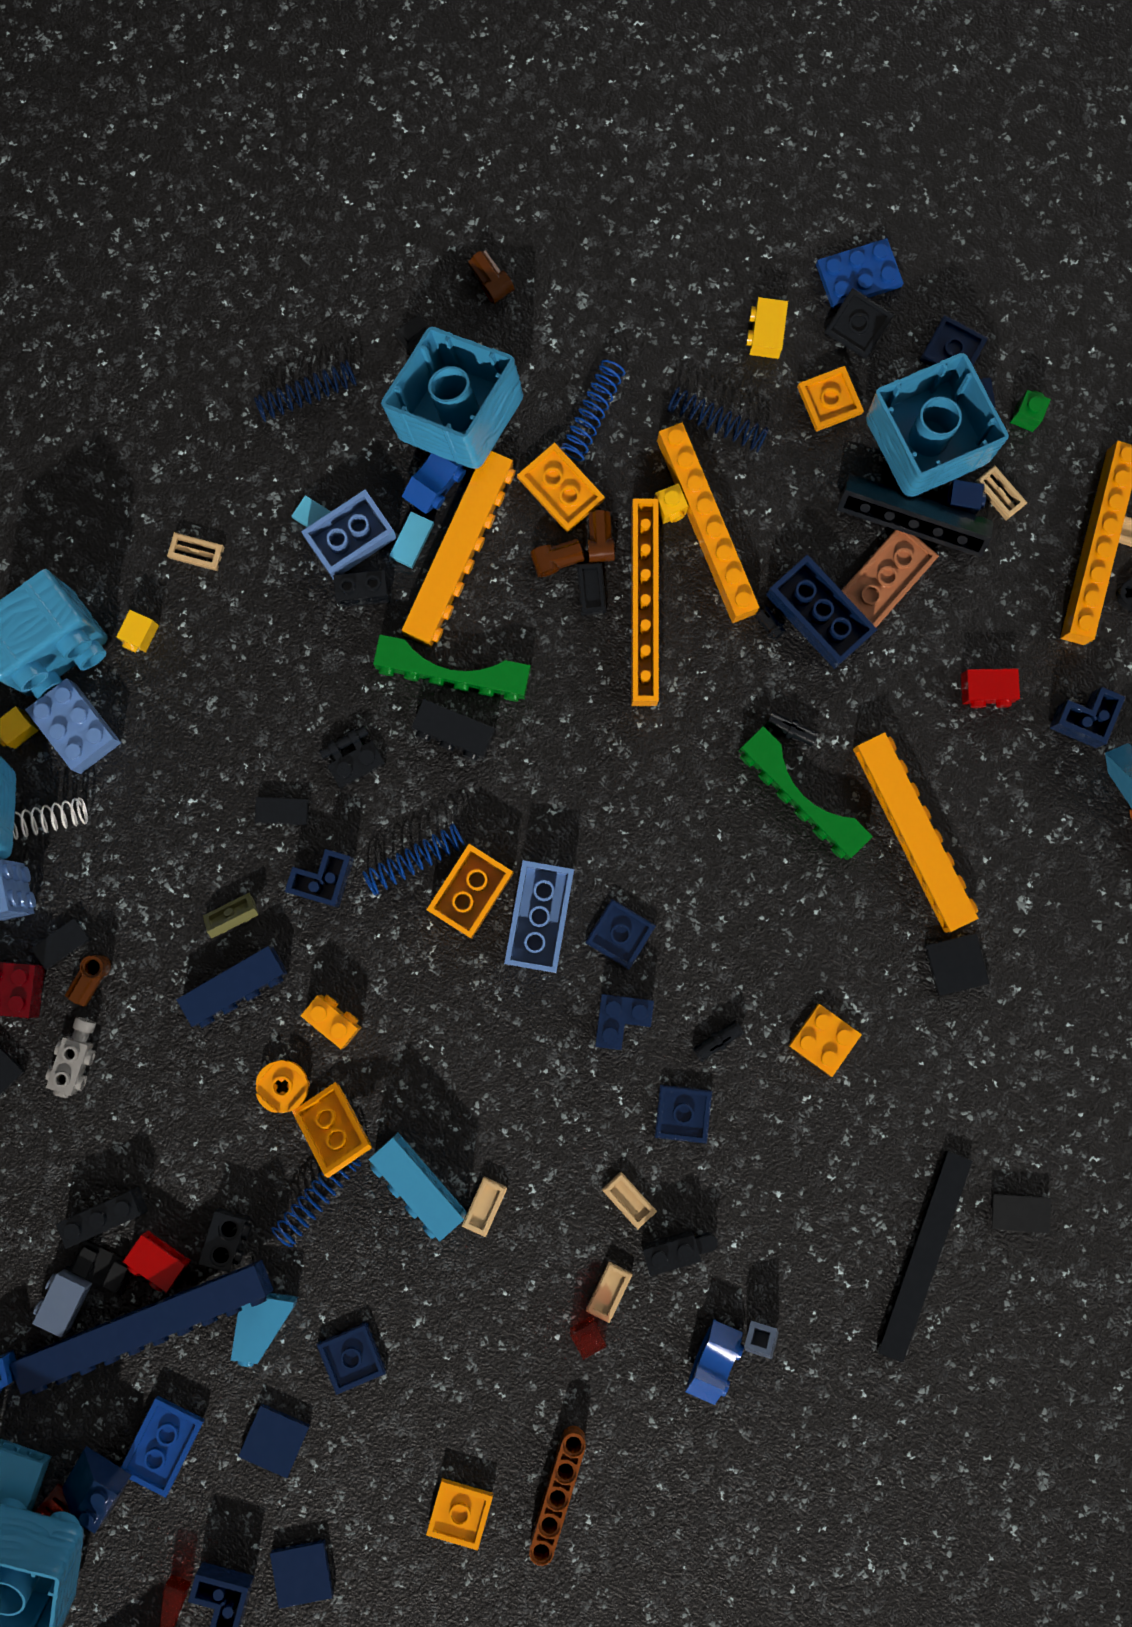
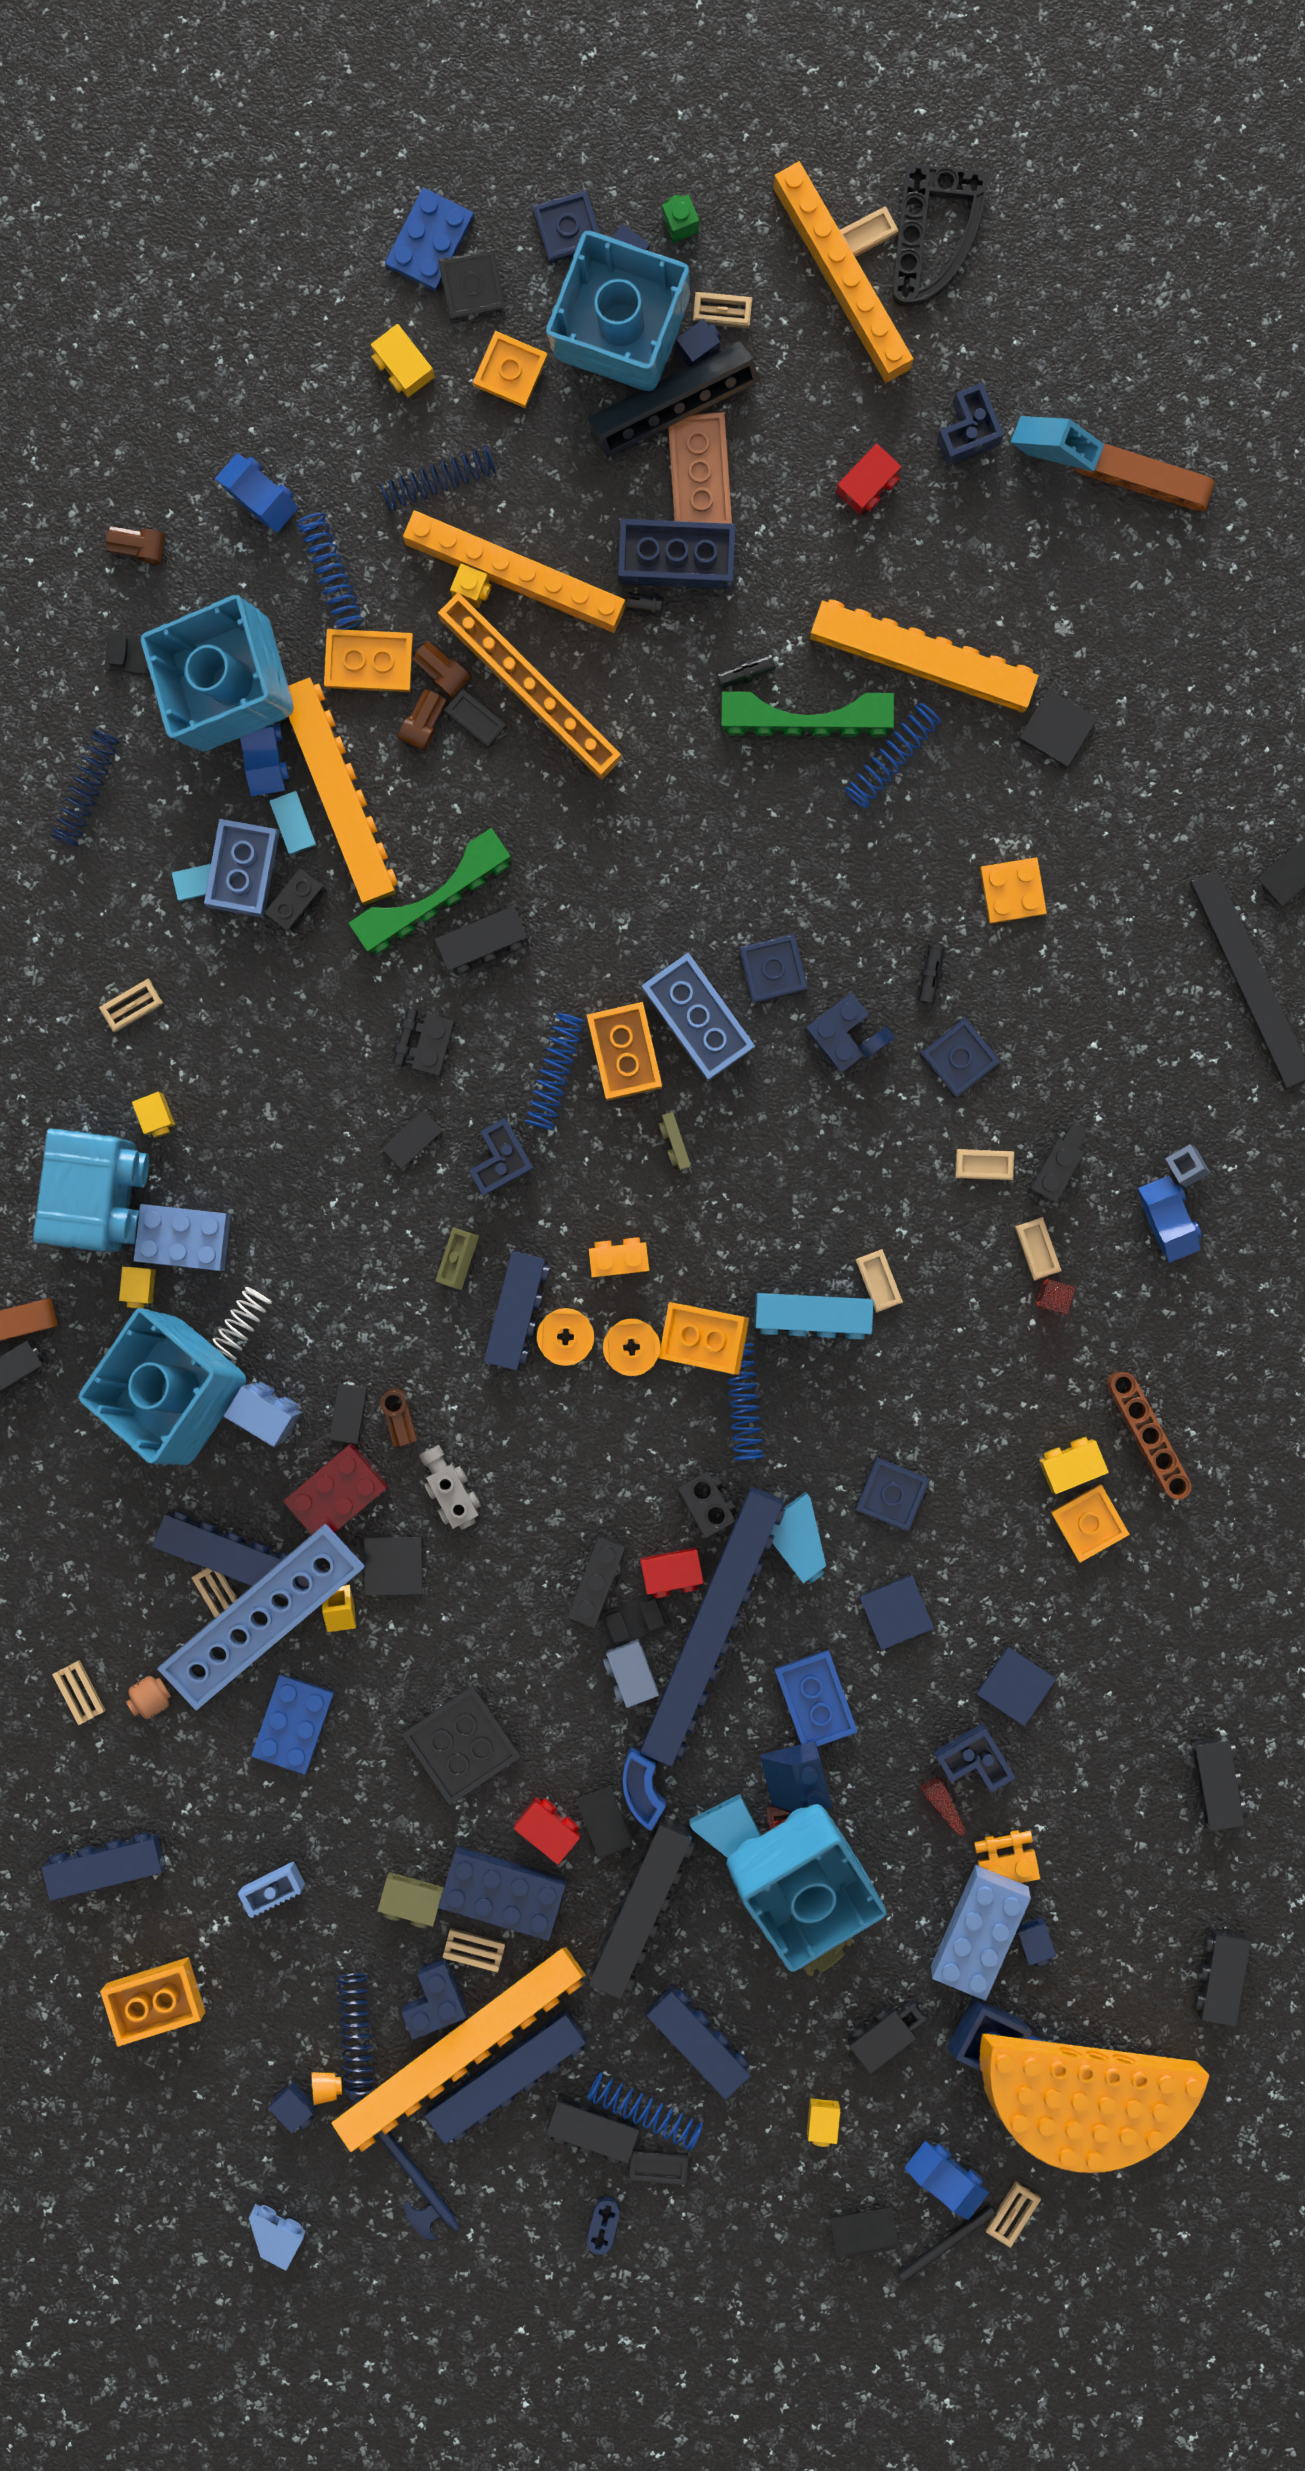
camera: 40 degrees left, 5 degrees up
(232, 1034) = (552, 1346): none -> light orange plate
(438, 991) = (670, 1130): none -> olive plate
(487, 1463) = (1073, 1465): none -> yellow brick
(596, 318) = (257, 493): none -> blue brick
(638, 1050) = (876, 1042): none -> dark blue beam
(784, 889) = (866, 803): none -> blue piece

